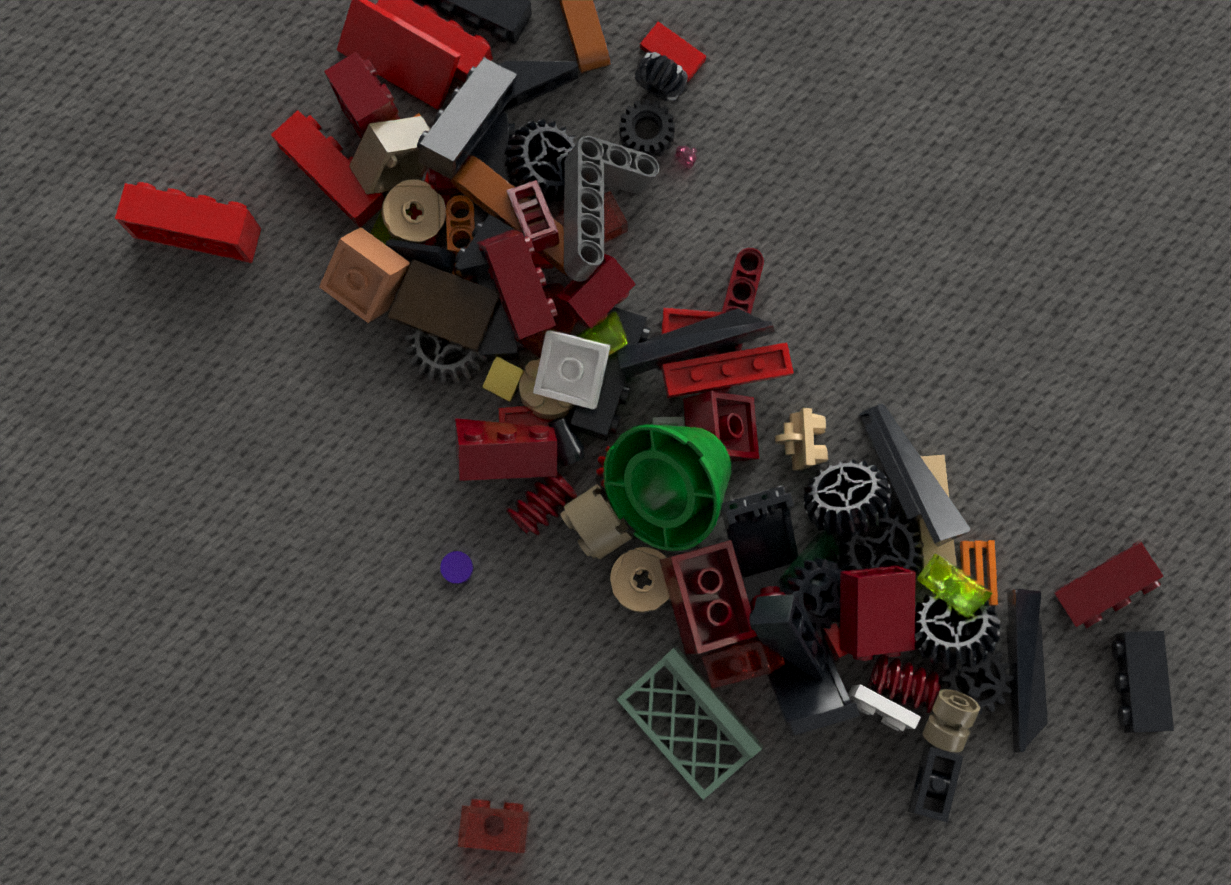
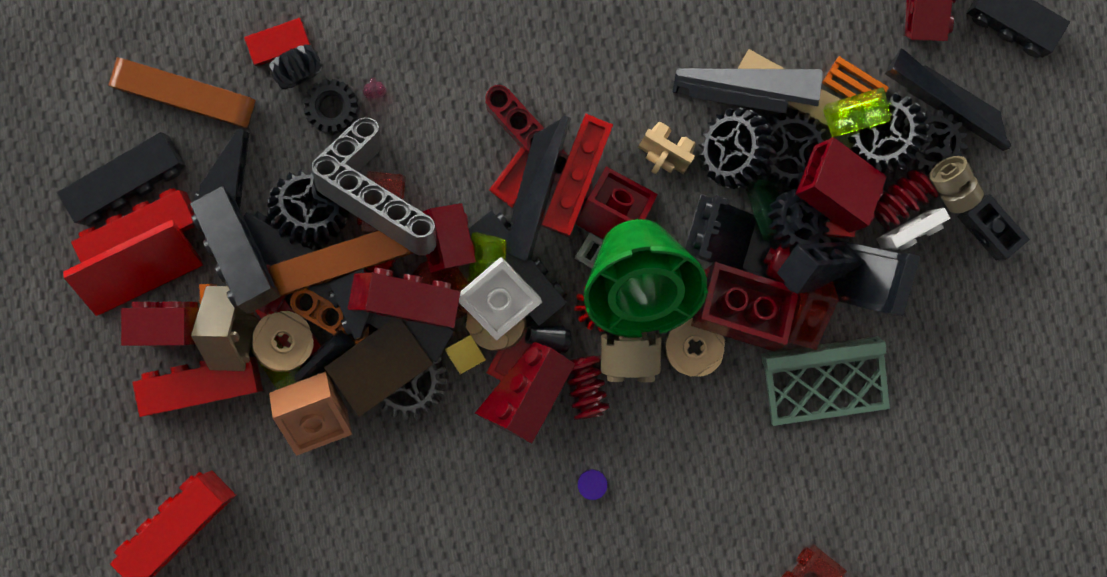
camera: 60 degrees left, 10 degrees up
(543, 234) = (380, 255): dark red slope -> none

